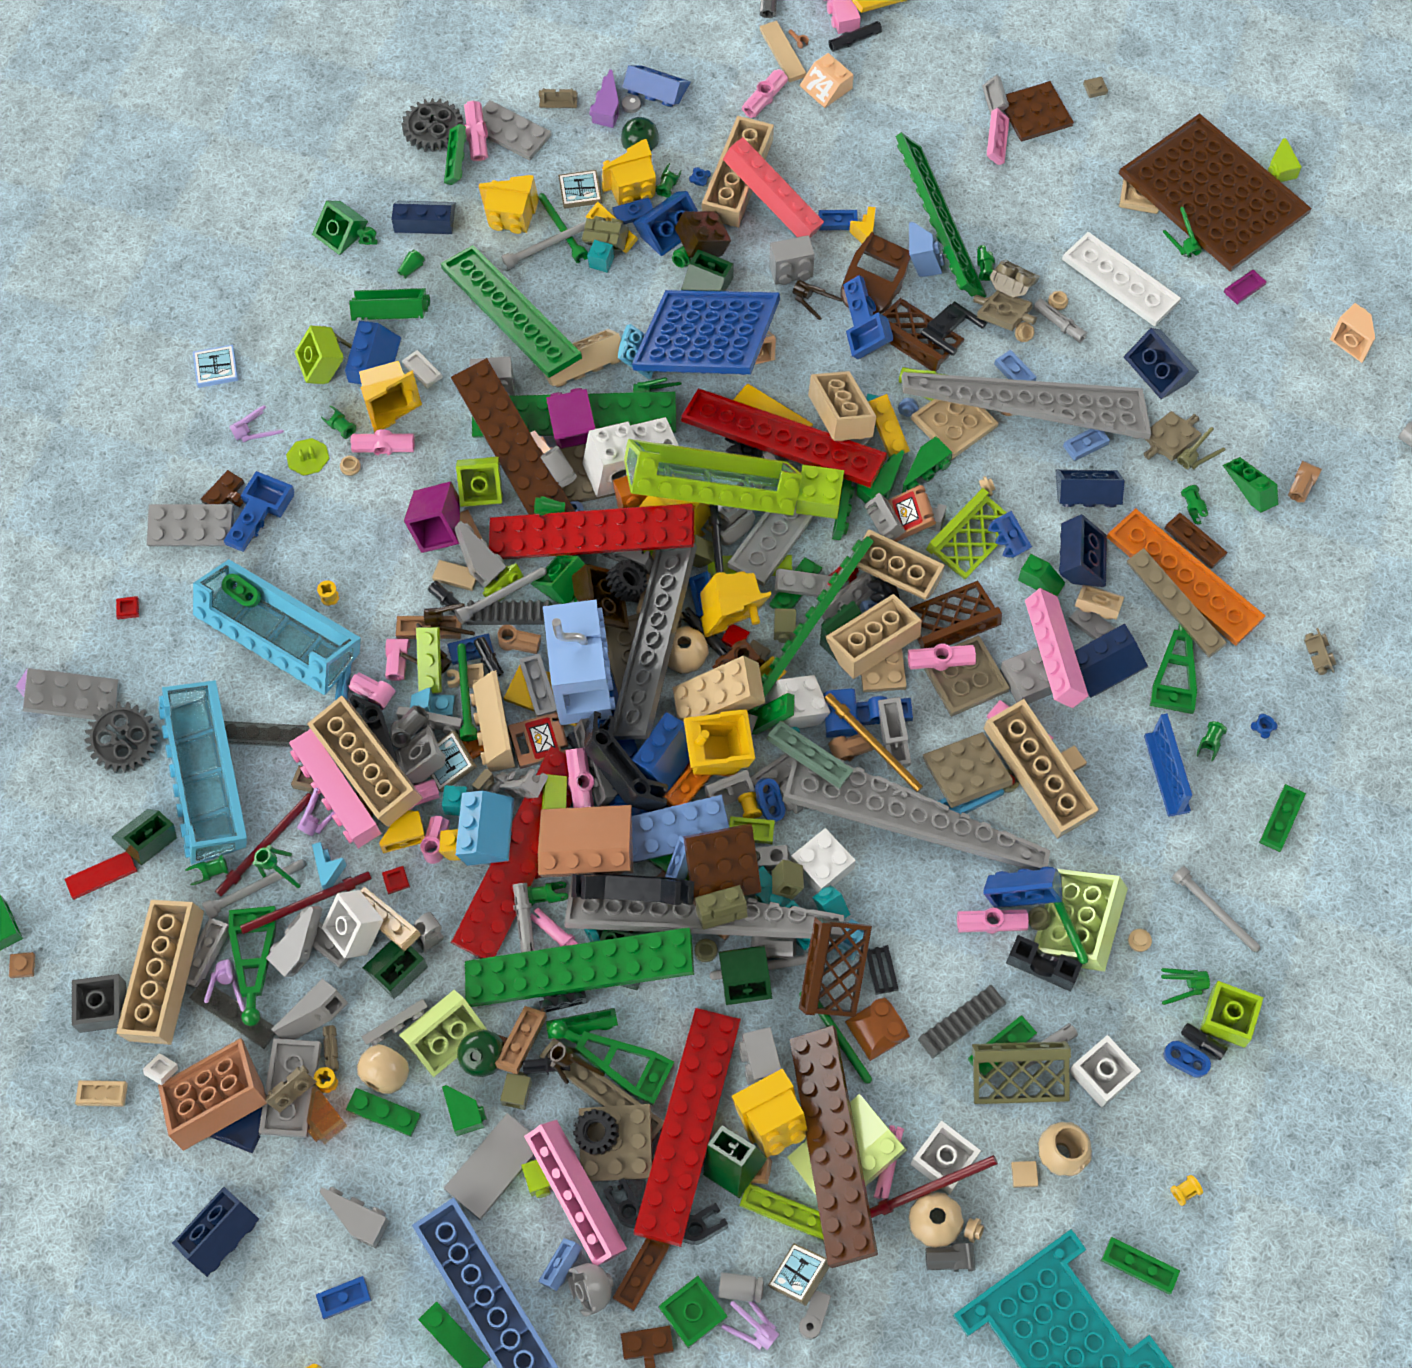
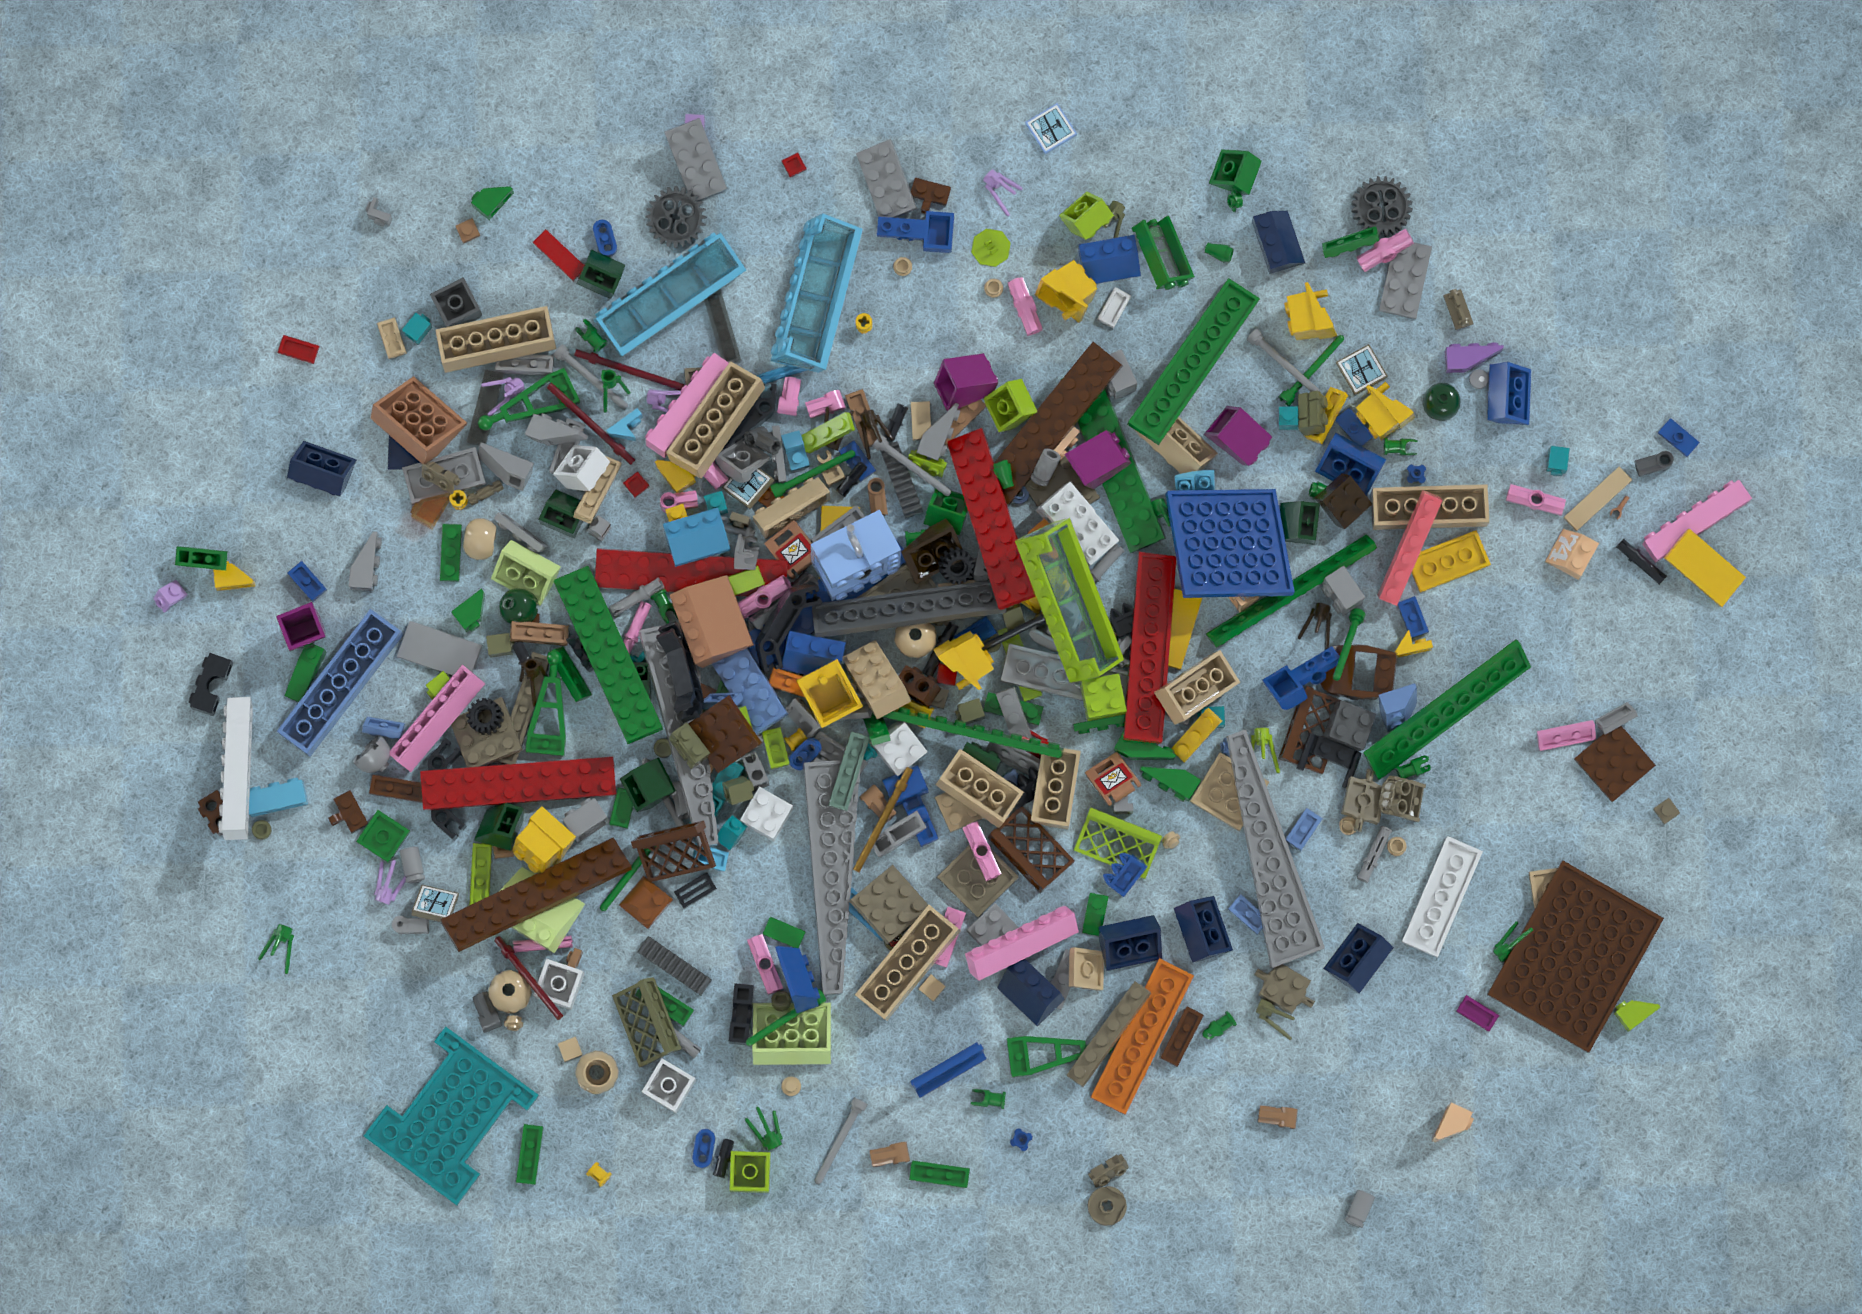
camera: 70 degrees right, 15 degrees up
(60, 1210) = (298, 349): none -> red tile
(104, 1058) = (417, 328): none -> teal brick
(108, 819) = (606, 238): none -> blue plate
(160, 1069) = (424, 373): white plate -> none
(242, 591) = (835, 252): green plate -> none
(286, 540) = (902, 266): none -> tan plate
(339, 423) = (1031, 261): green piece -> none
(399, 1317) = (301, 626): none -> magenta slope
(597, 301) = (1238, 435): none -> magenta slope
(734, 66) = (1558, 460): none -> teal brick
(758, 1017) = (621, 809): none -> green tile
(765, 282) = (1302, 584): none -> green plate
(796, 168) = (1449, 561): none -> yellow tile
(822, 263) = (1356, 618): none -> green piece
(884, 517) = (1101, 763): light grey hinge -> none
(918, 1130) = (574, 957): none -> medium nougat plate
(925, 297) = (1349, 725): none -> dark grey brick
(961, 891) = (784, 933): none -> green tile
(1247, 861) = (893, 1154): none -> medium nougat piece
(1255, 486) = (1258, 1070): green slope -> none
(1359, 677) = (1117, 1202): none -> dark tan plate

